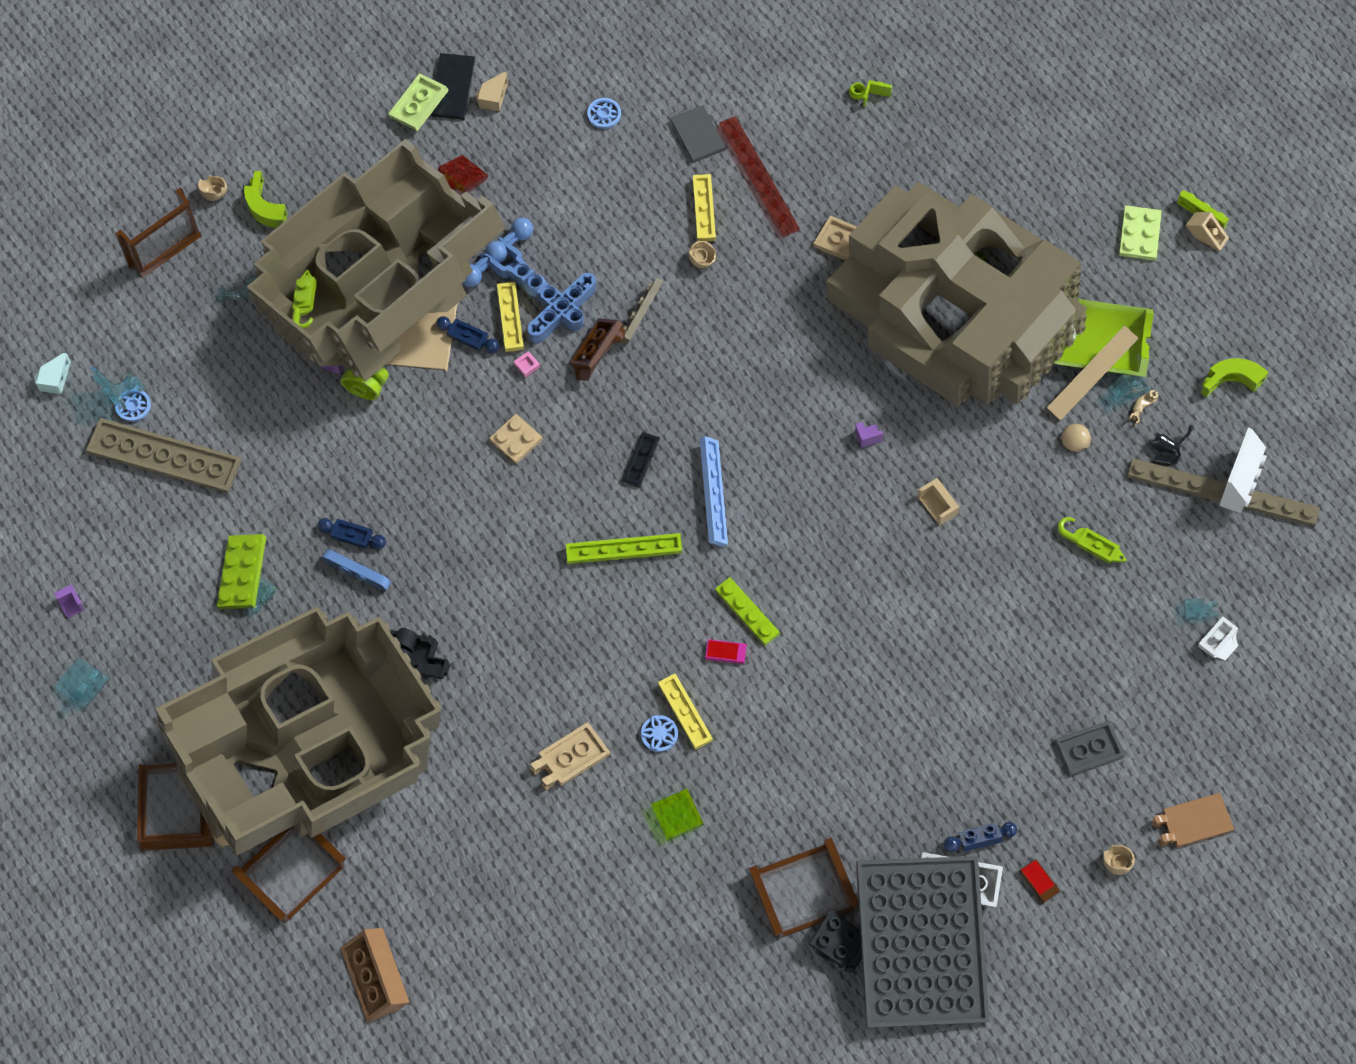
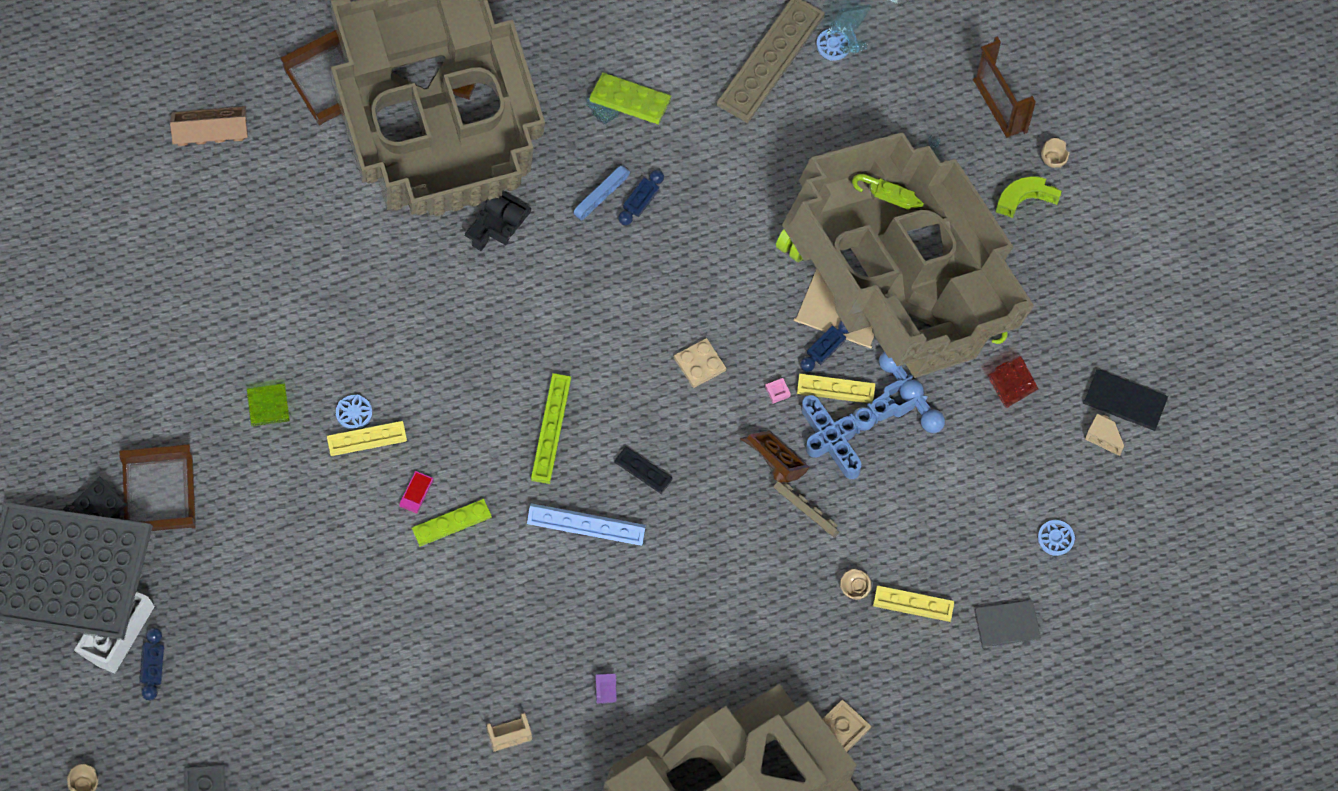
camera: 100 degrees right, 0 degrees up
(418, 102) = (1109, 359): yellowish green plate -> none
(570, 756) = (356, 330): tan tile -> none
(759, 176) = (939, 670): clear red tile -> none
(1039, 881) = (91, 705): red tile -> none

